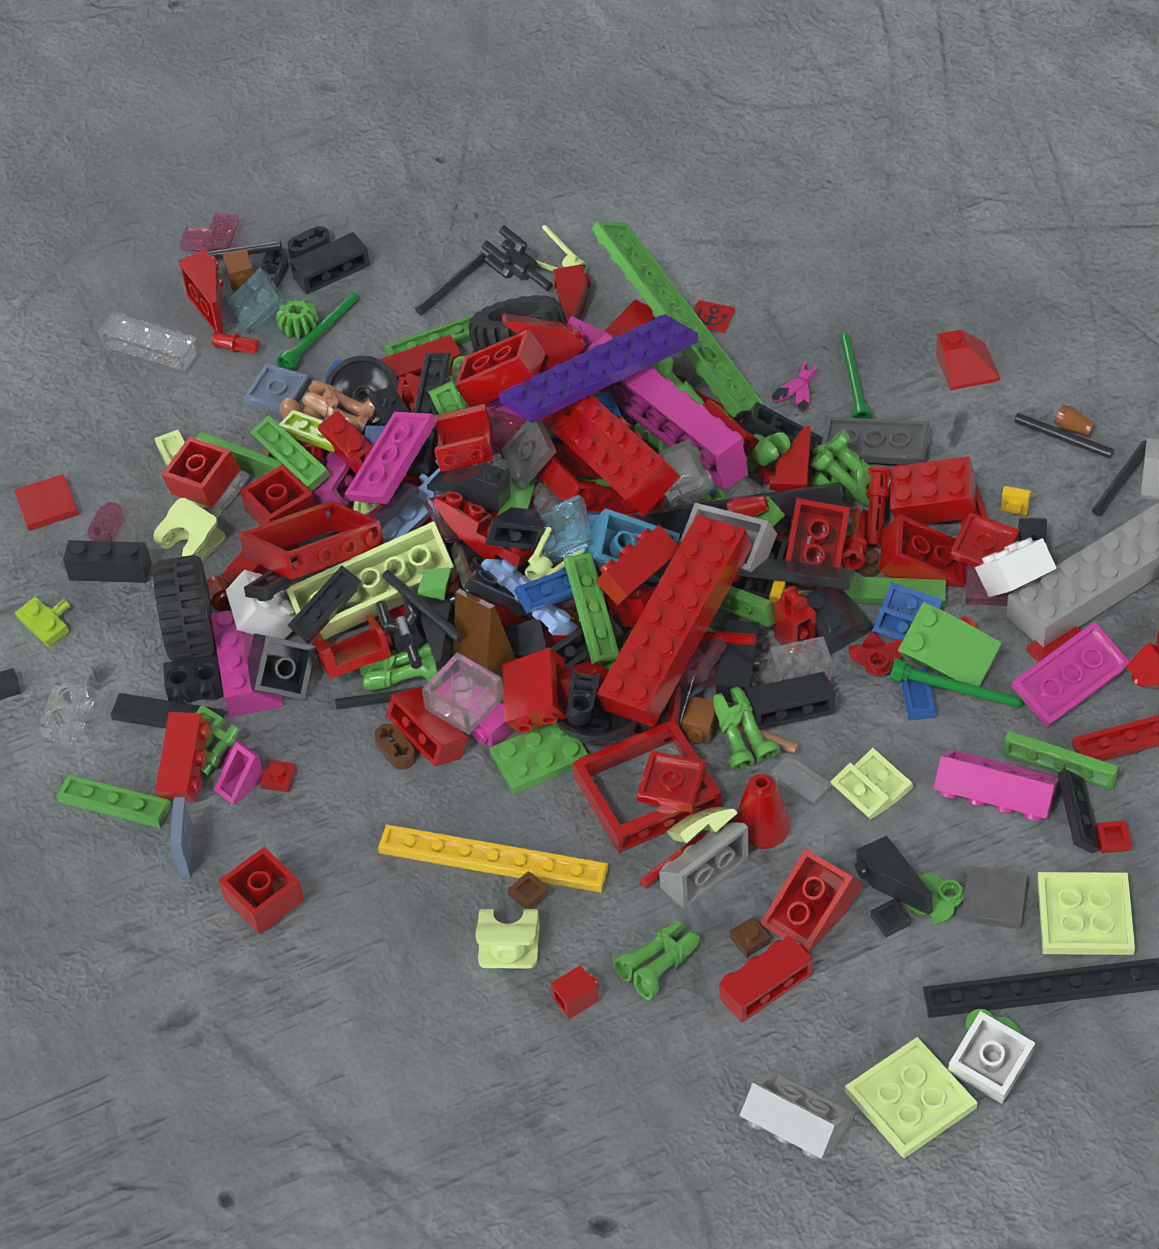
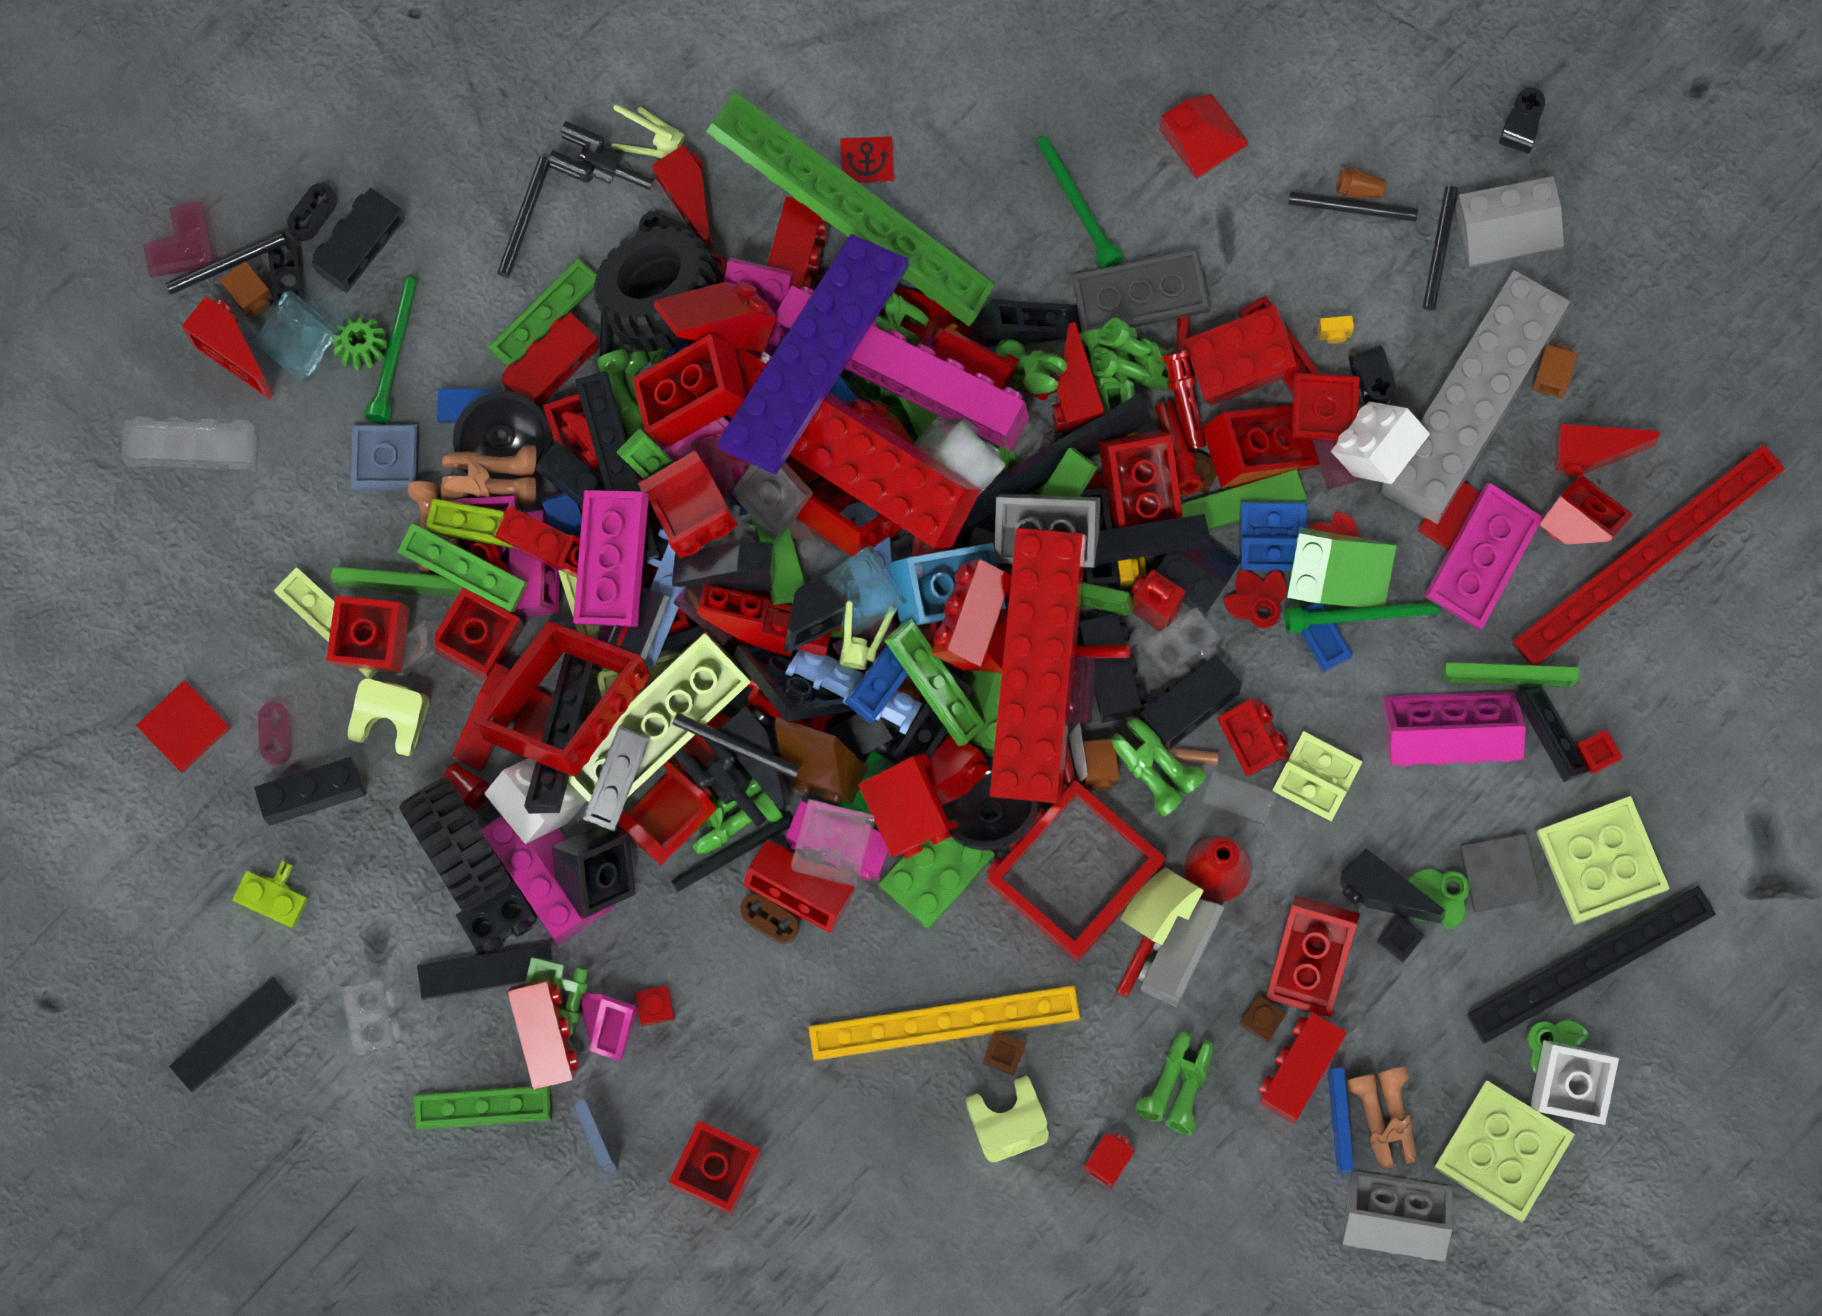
camera: 25 degrees left, 25 degrees up
(235, 343) = (299, 406): red axle -> none
(435, 583) = (740, 713): bright green slope -> none
(582, 693) = (968, 797): black piece -> none
(671, 781) = (1108, 866): red tile -> none
(749, 505) = (1051, 474): red cone -> none
(779, 1027) = (1340, 1121): none -> blue tile
(797, 386) = (1017, 238): dark pink piece -> none
(828, 1045) = (1399, 1127): none -> nougat piece
(831, 739) = (1253, 736): none -> red bracket

